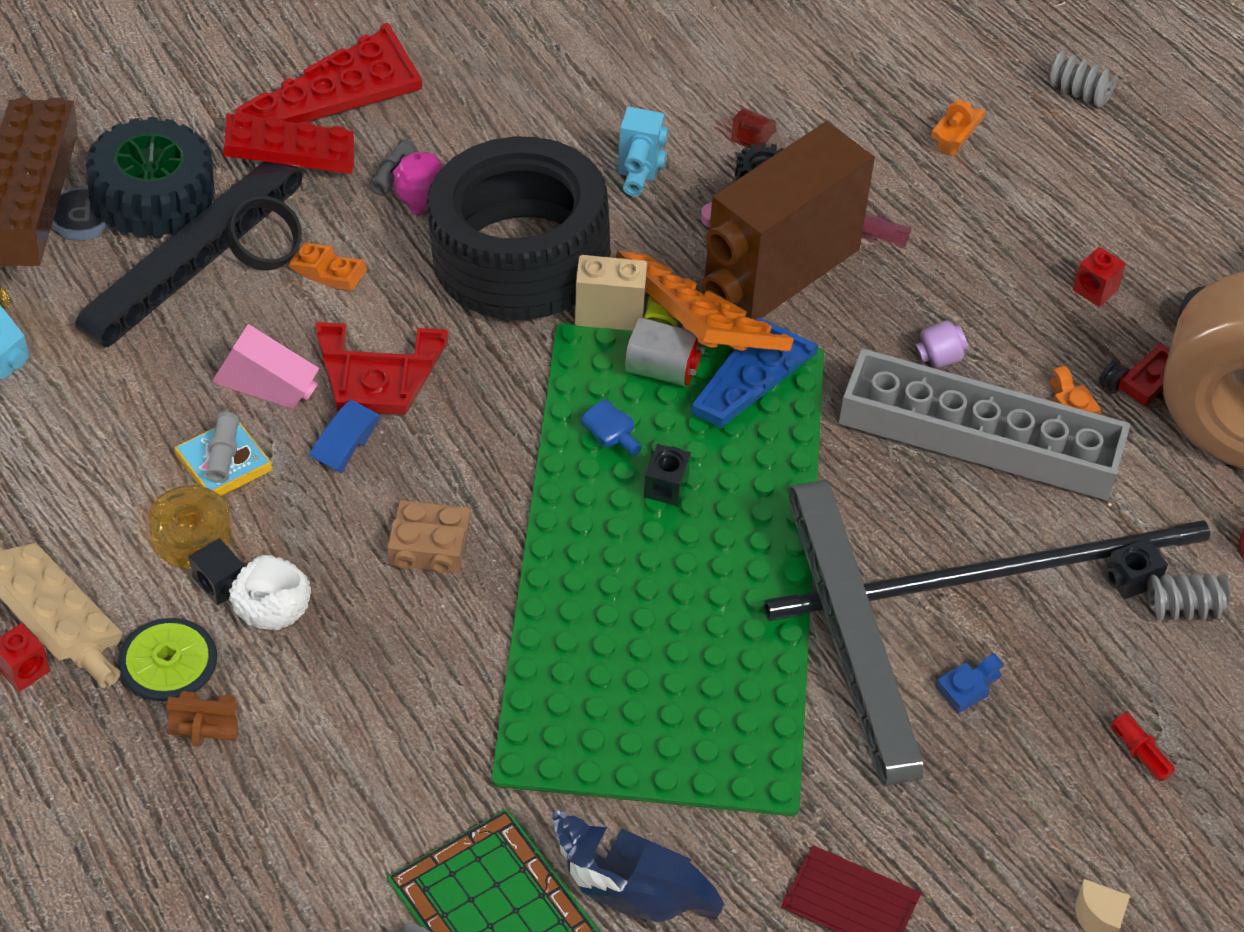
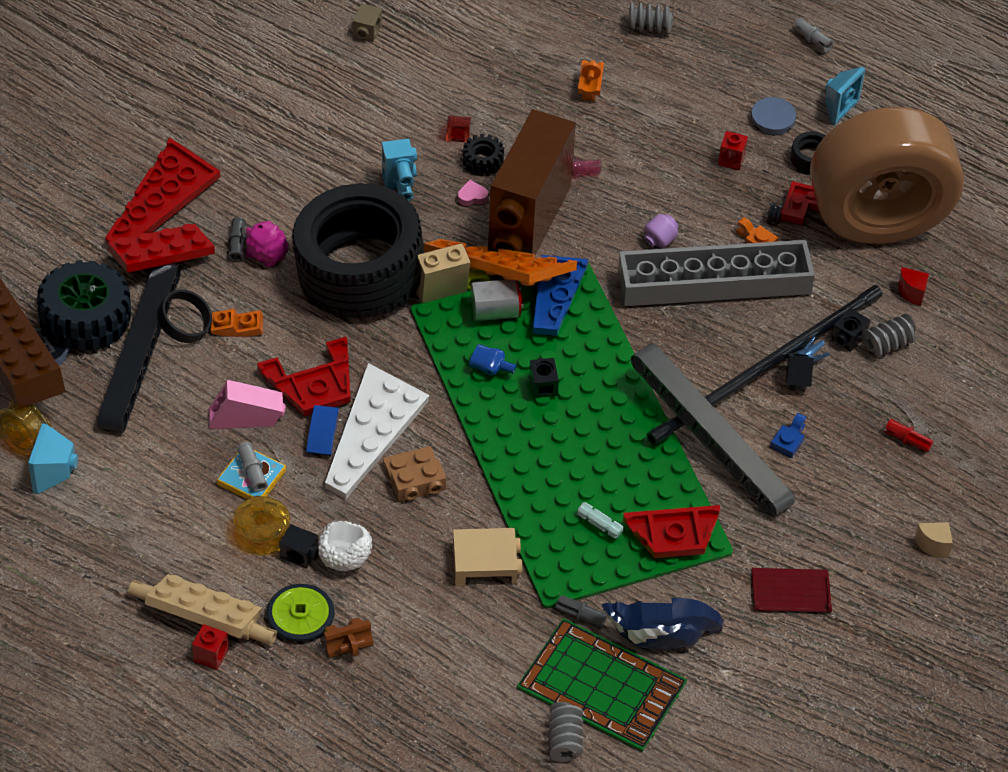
camera: 25 degrees left, 0 degrees up
(426, 448) = (375, 422): none -> white wing
(451, 679) = (486, 554): none -> tan panel
(533, 807) = (581, 611): none -> dark grey axle
(632, 693) = (600, 520): none -> light aqua axle
(726, 748) = (674, 530): none -> red wing
(1028, 596) = (799, 370): none -> black brick
(1049, 580) = (813, 348): none -> flat silver piece
(1183, 253) = (773, 115): none -> sand blue tile

